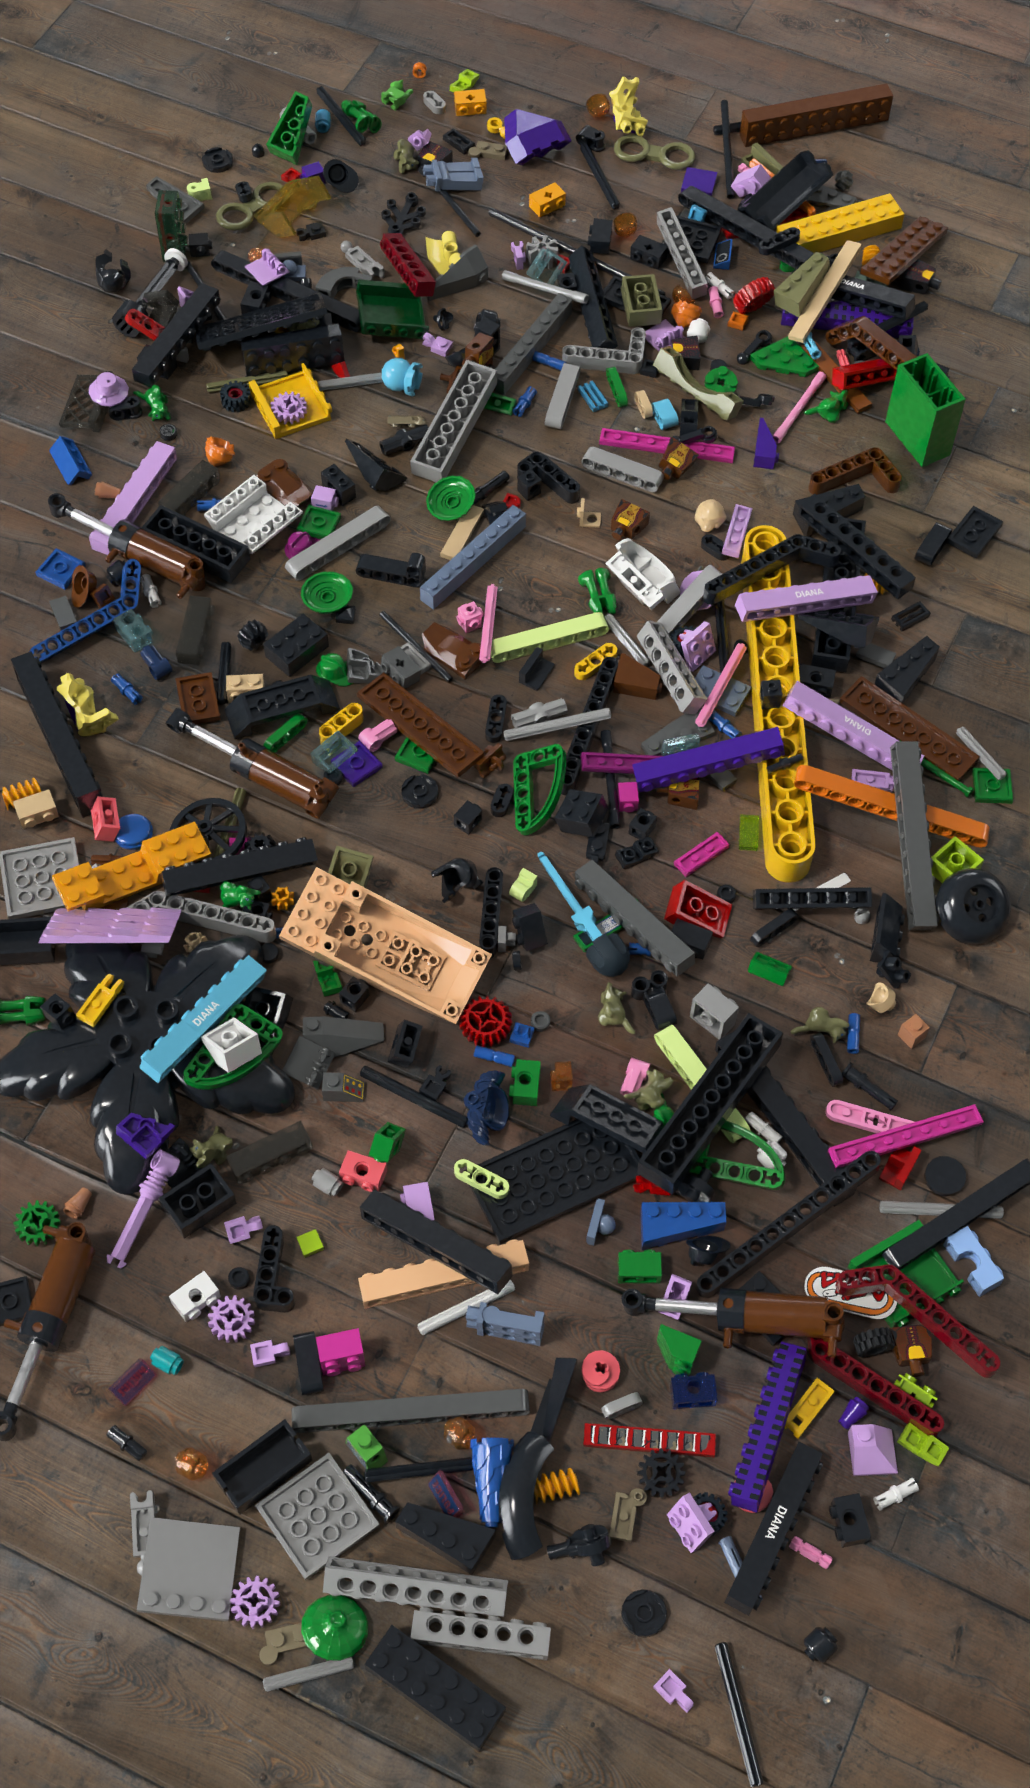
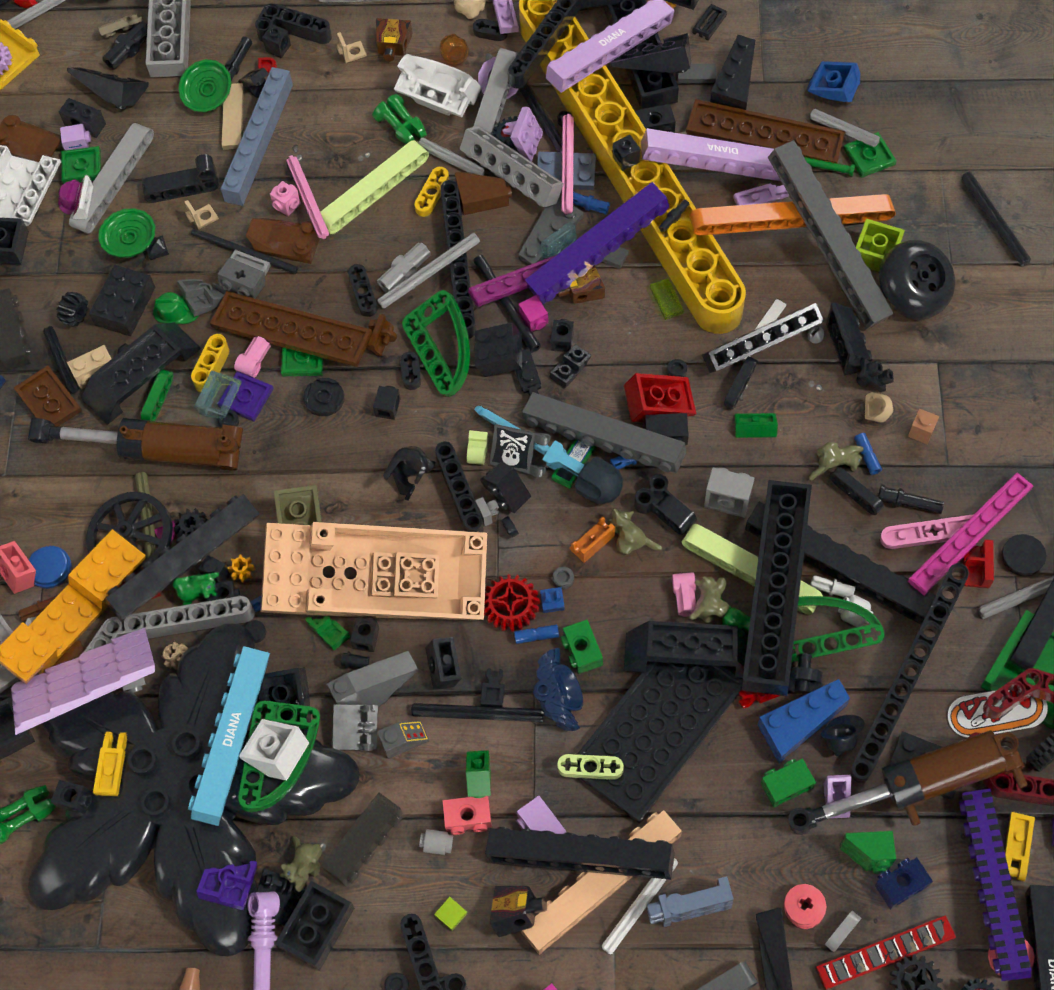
camera: 20 degrees left, 5 degrees up
(239, 1228) = (372, 933): lavender plate -> none
(305, 550) = (83, 199): none -> white slope
(360, 1260) = (514, 909): none -> torso
(389, 602) = (194, 216): none -> tan bracket
(535, 670) = (377, 225): black panel -> none
(553, 900) = (516, 449): none -> flag
(561, 1076) = (614, 625): clear orange brick -> none
(580, 1002) = (593, 540): none -> orange hinge
(599, 1223) = (726, 756): sand blue tile -> none
(674, 551) = (454, 49): none -> clear orange hair
(701, 854) = (633, 340): dark pink tile -> none
(995, 710) = (835, 81): none -> blue slope

